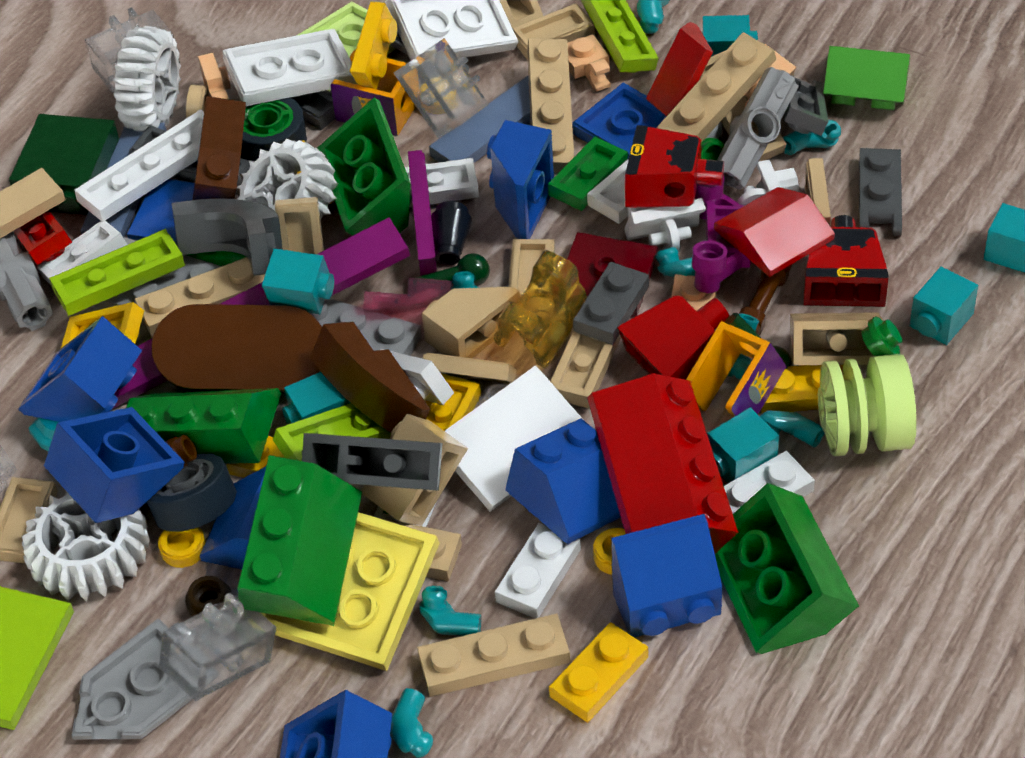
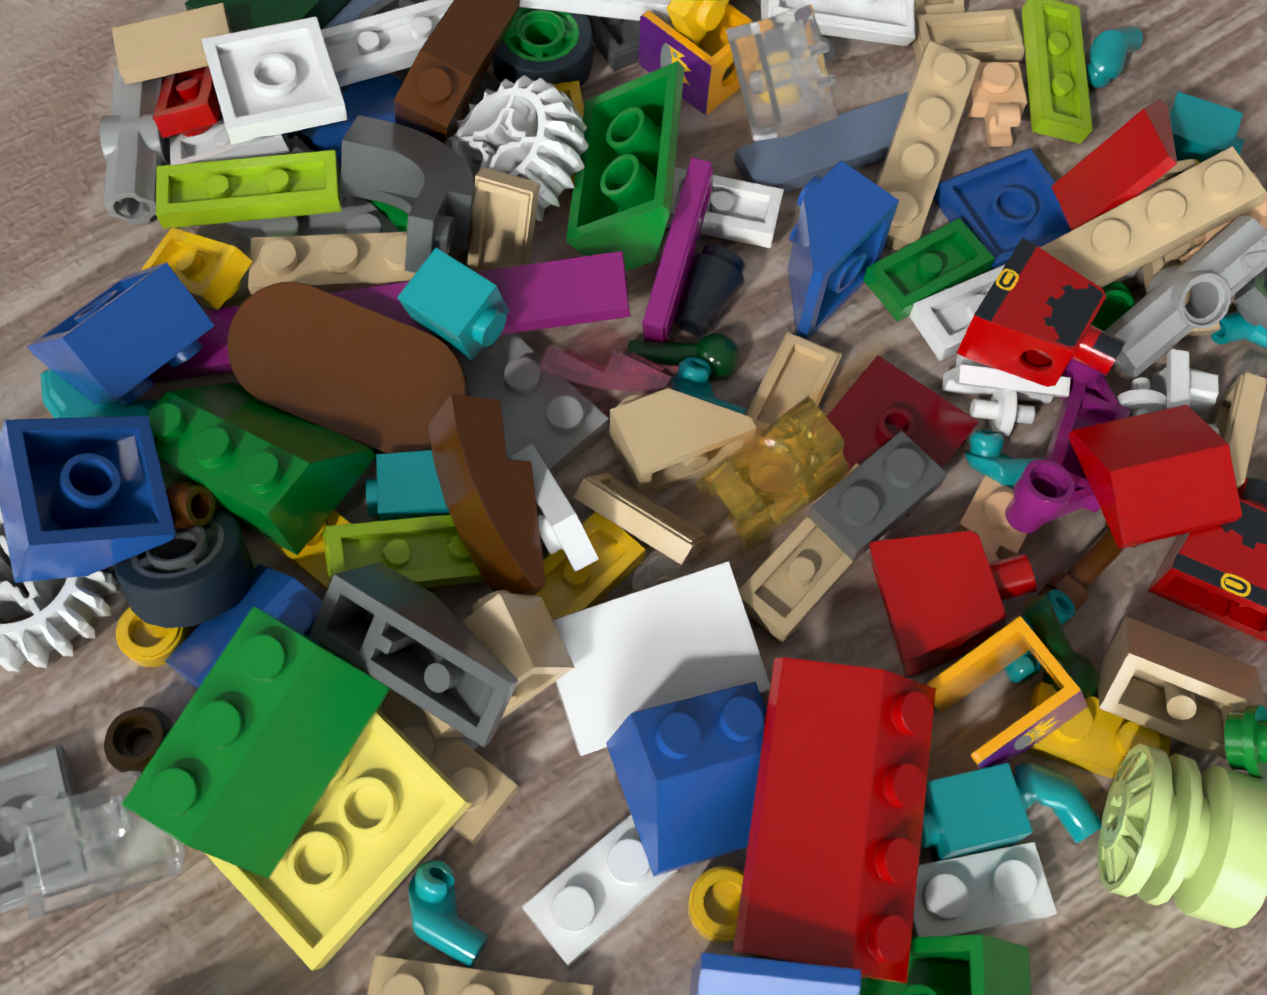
camera: 15 degrees right, 15 degrees up
(105, 199) = (274, 80): none -> white hinge

